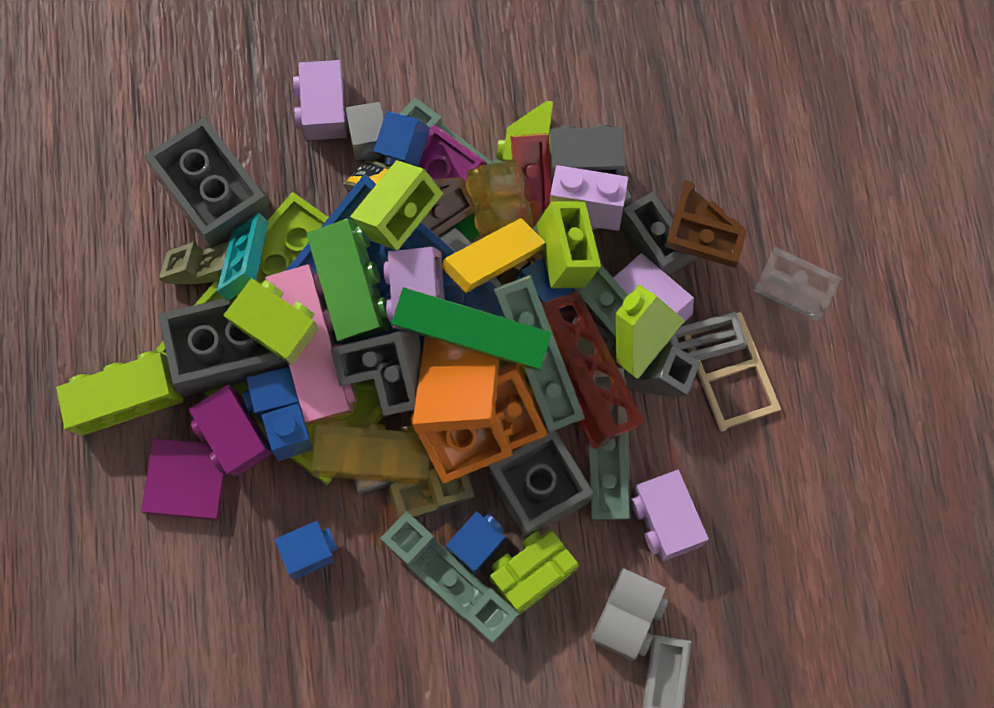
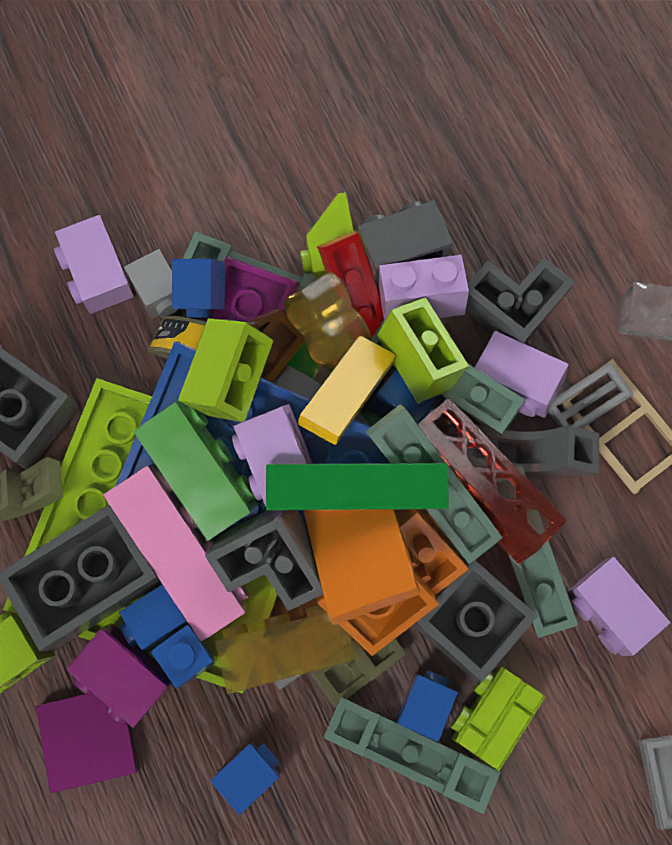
camera: 20 degrees left, 5 degrees up
(242, 256) = (69, 476): teal plate -> none
(272, 320) = (128, 546): lime brick -> none
(629, 614) = (612, 731): light grey brick -> none
(643, 329) = (532, 420): lime slope -> none
(704, 229) = (558, 287): reddish brown wing -> none

